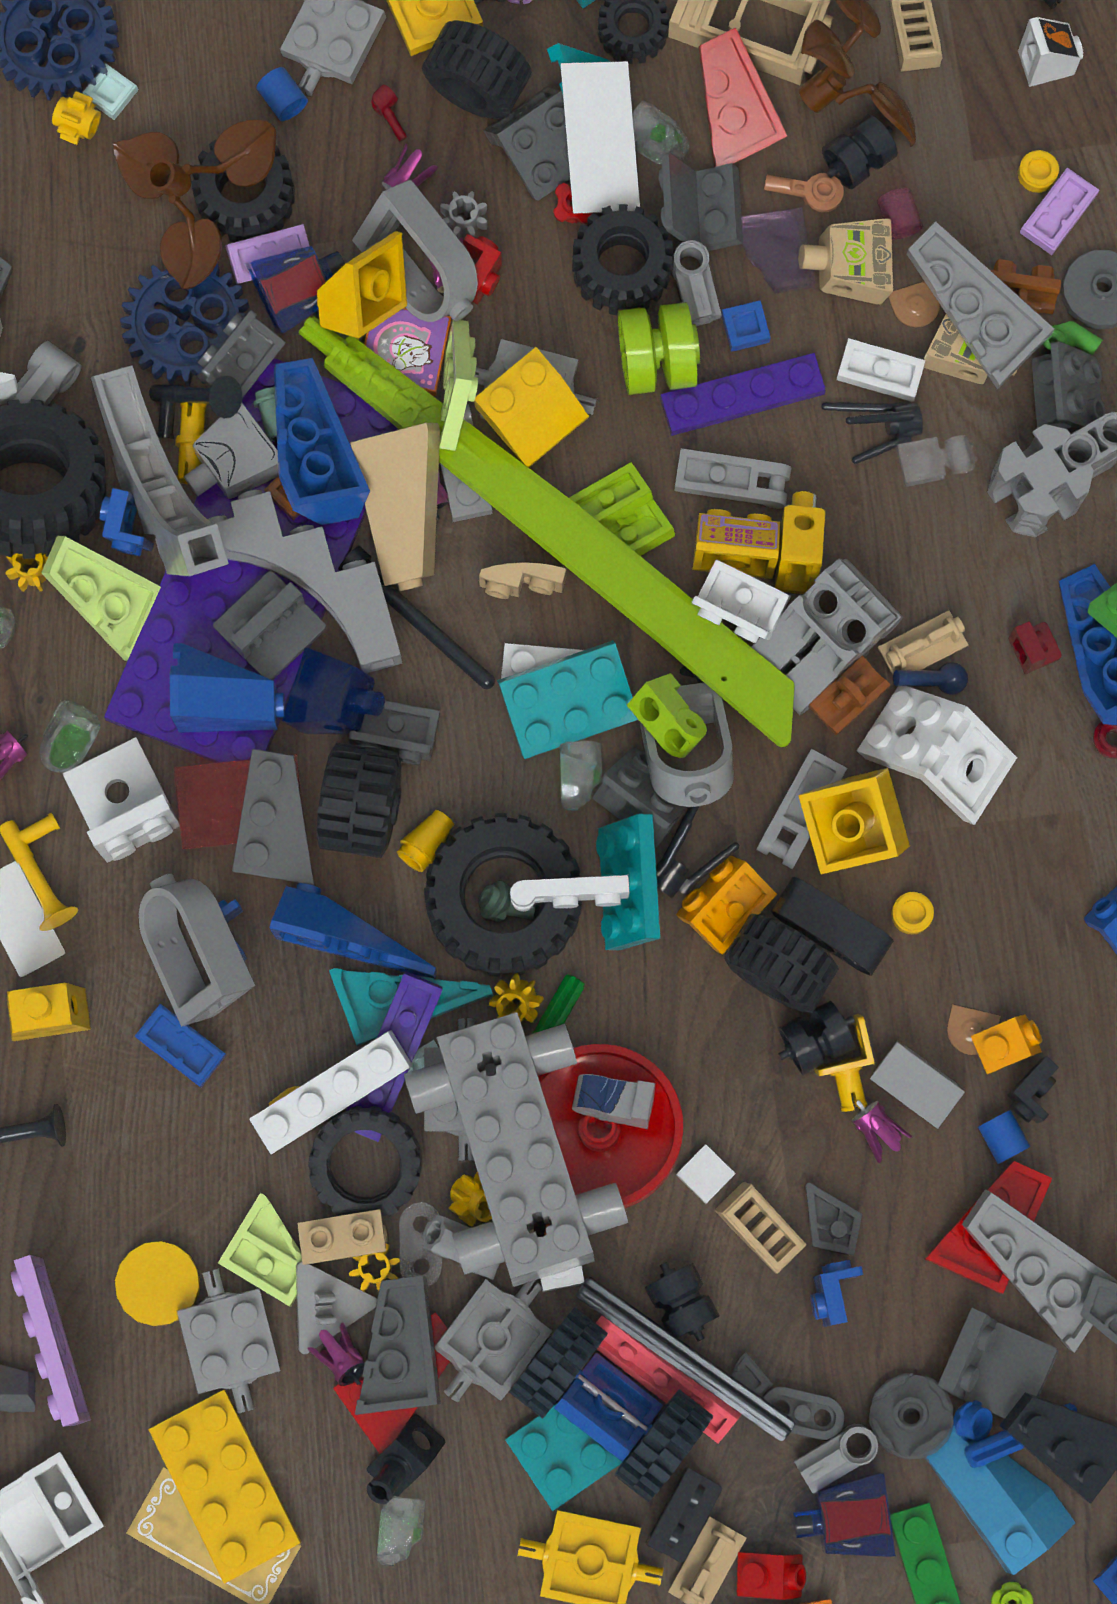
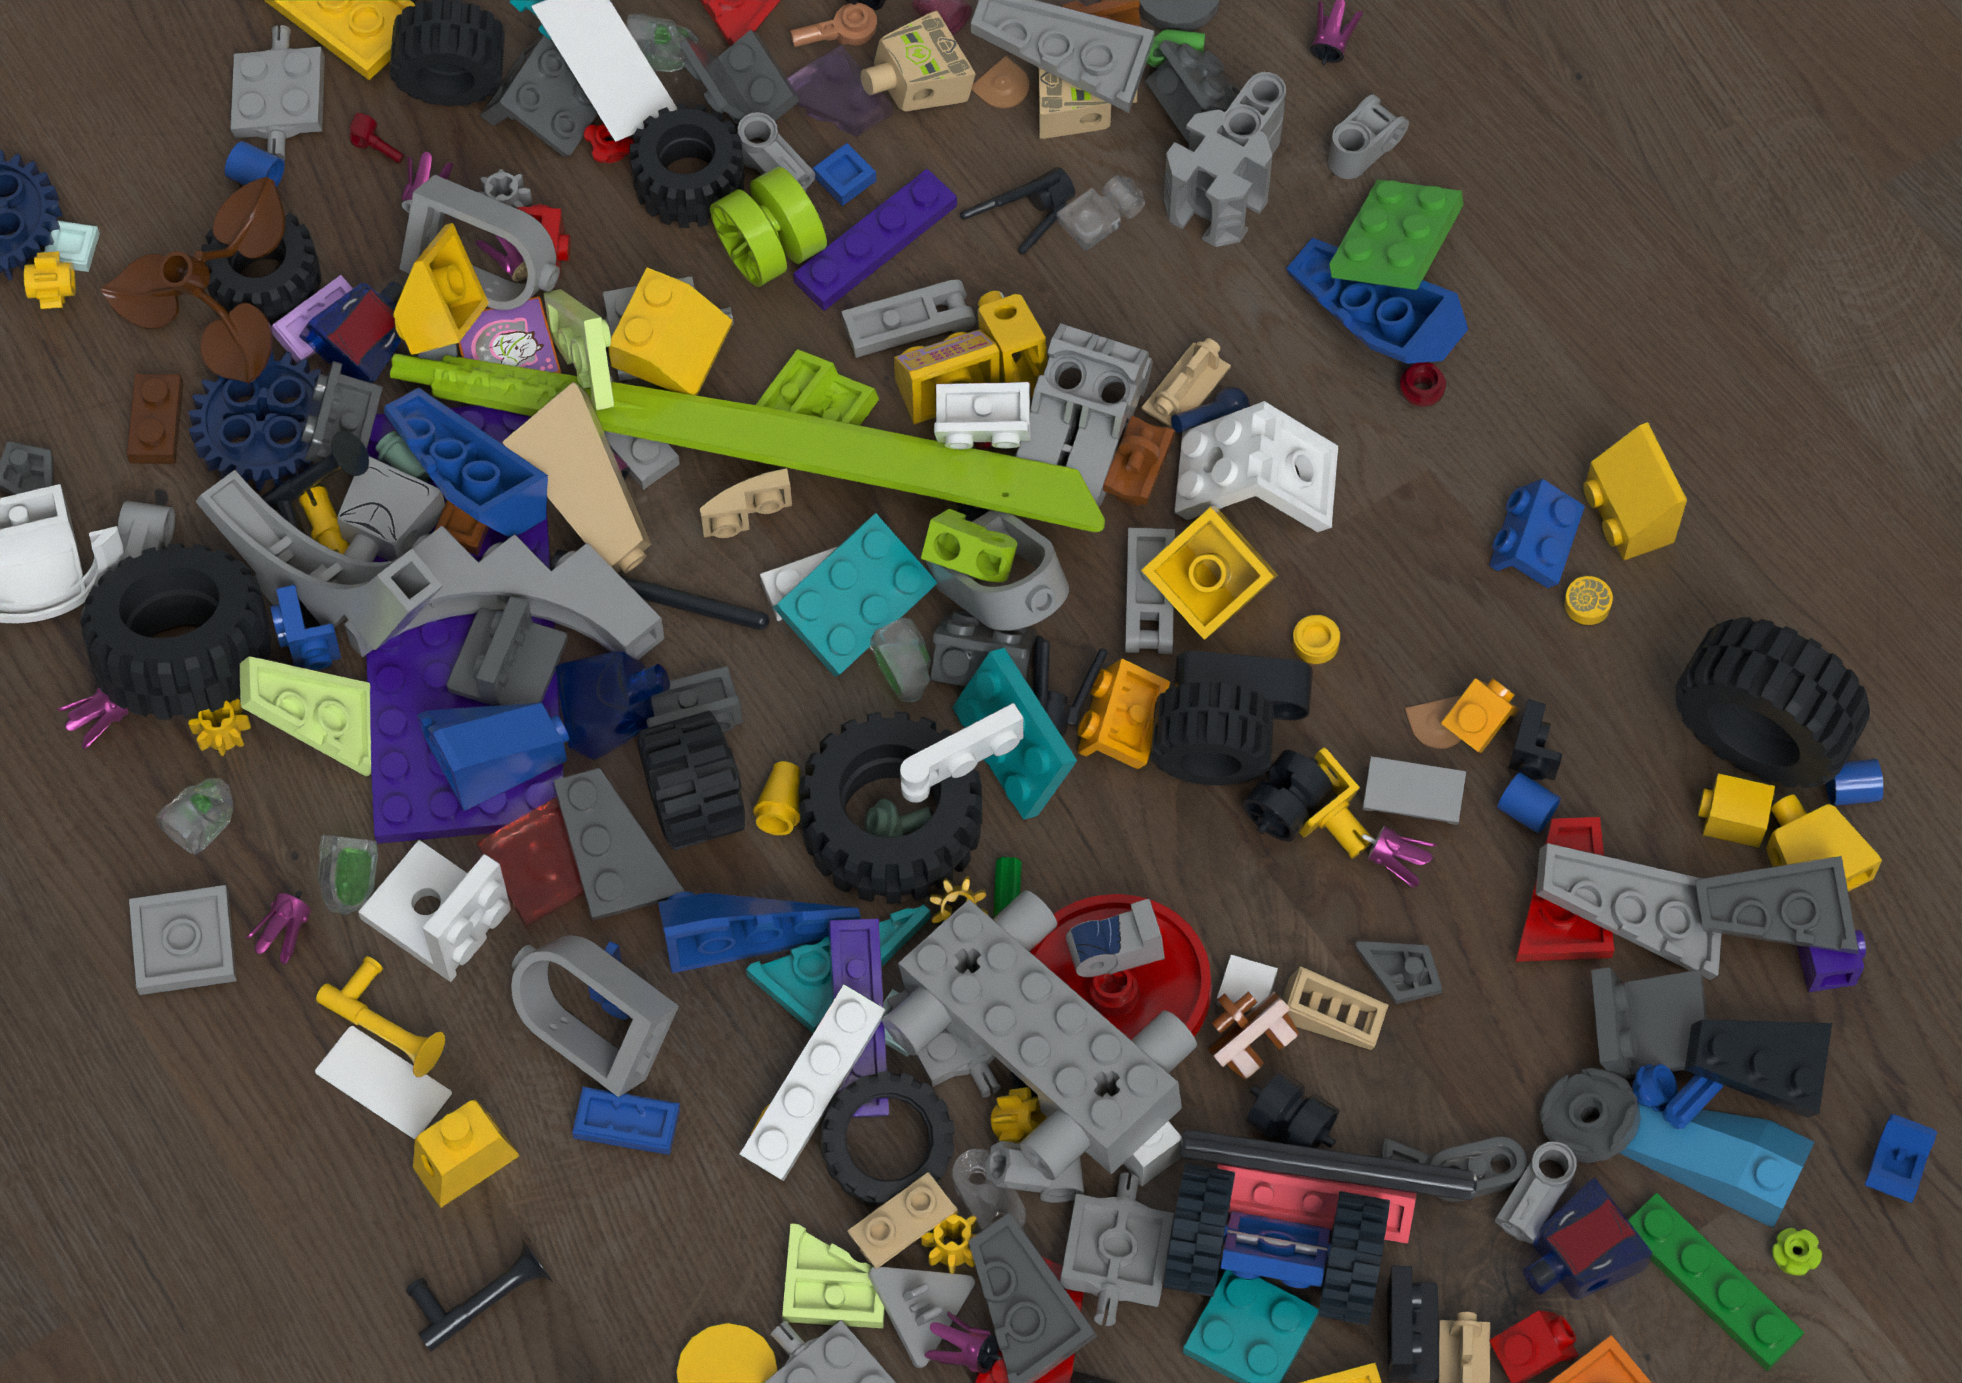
camera: 25 degrees left, 15 degrees down
(104, 276) = (155, 418): none -> reddish brown plate
(684, 1211) = (1268, 1018): none -> hips
(828, 1299) = (1440, 1029): blue bracket -> none
(880, 370) = (1002, 155): white plate -> none
(1034, 646) = (1295, 334): dark red bracket -> none

